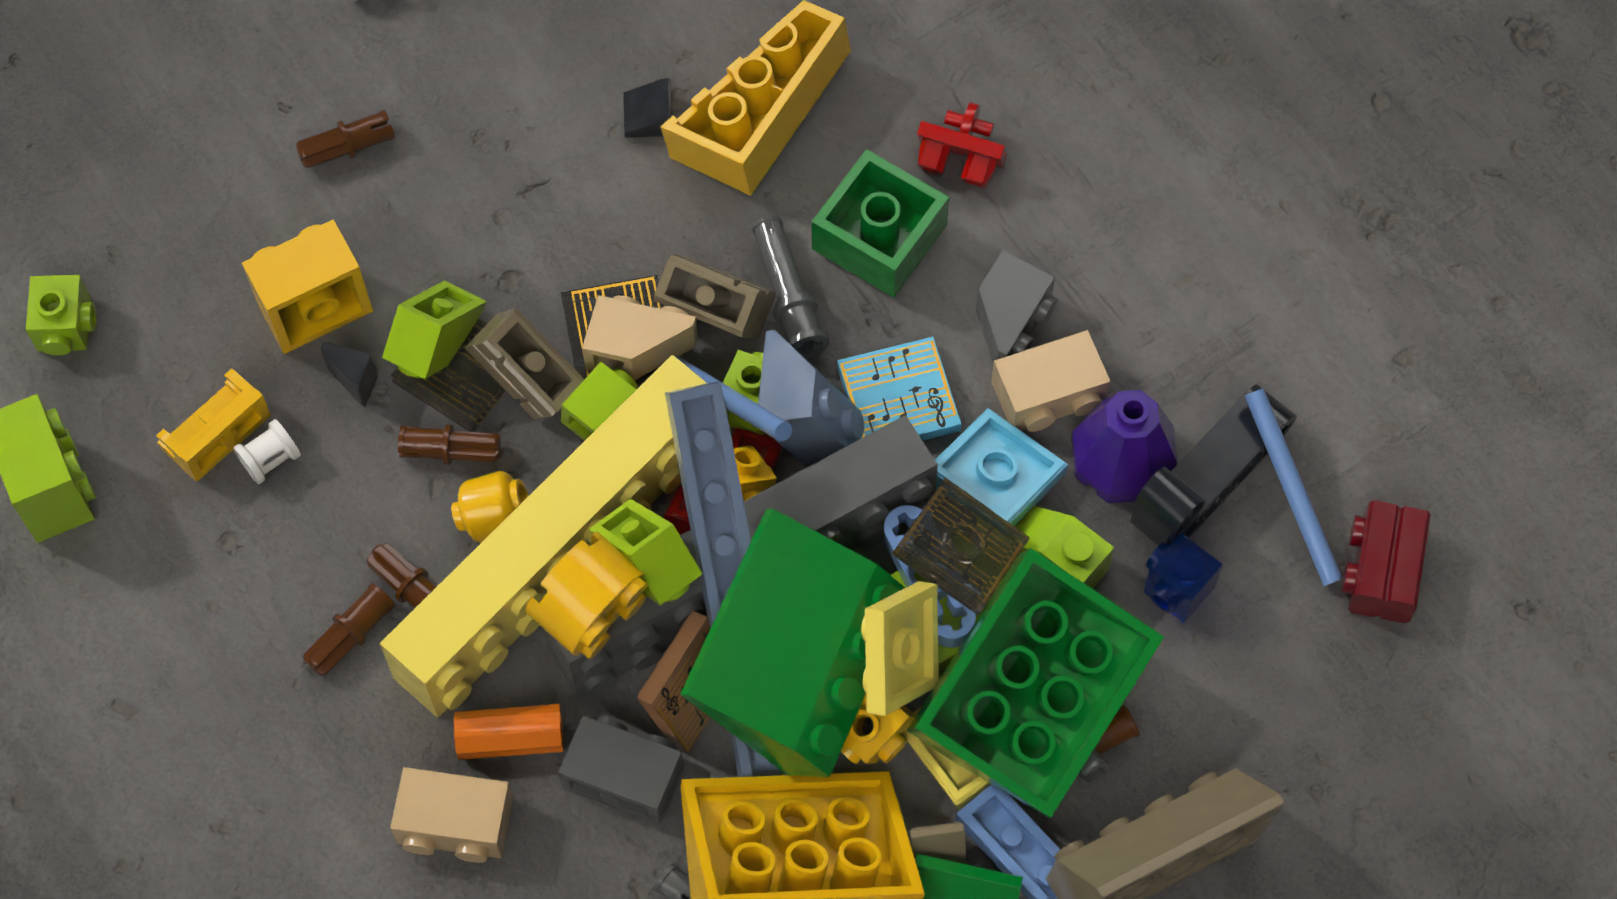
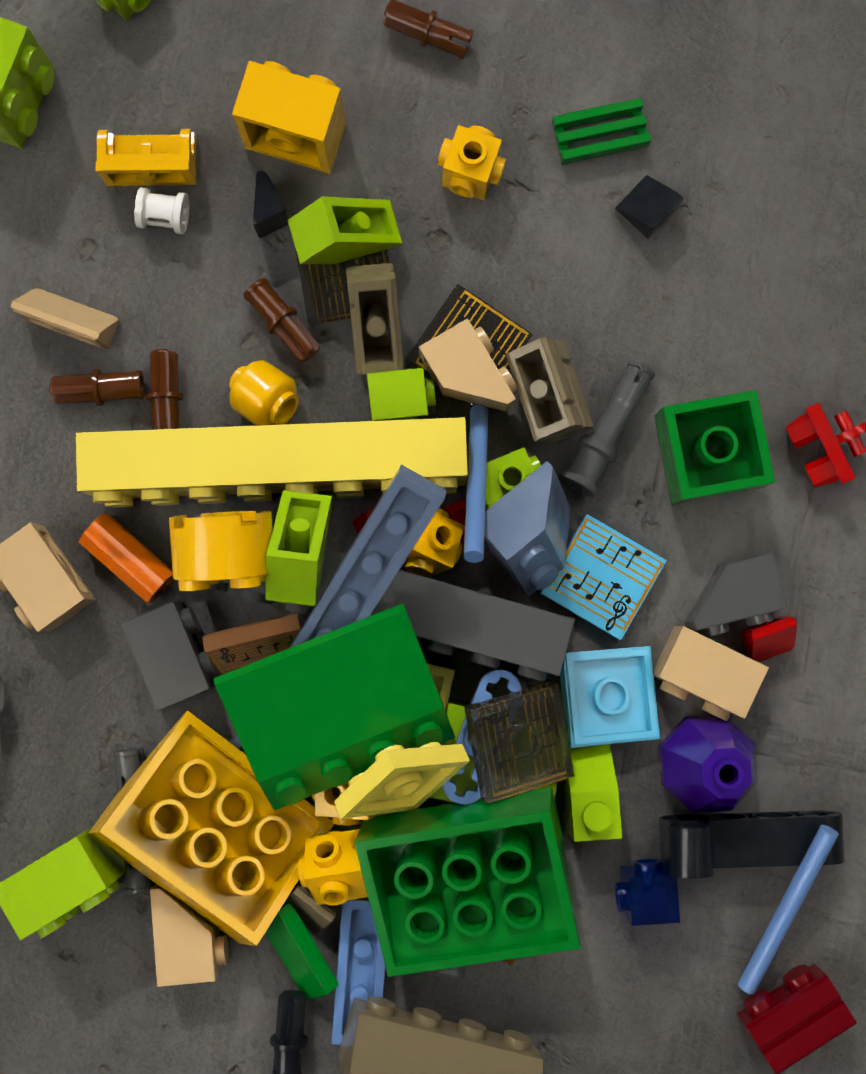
camera: 40 degrees right, 20 degrees up
(269, 605) = (66, 317): none -> tan slope
(481, 197) = (472, 175): none -> yellow brick
(561, 58) = (598, 114): none -> green tile
(757, 107) = (717, 278): yellow wedge -> none
(924, 780) = (332, 868): none -> yellow brick
(1069, 313) = (770, 638): none -> red slope

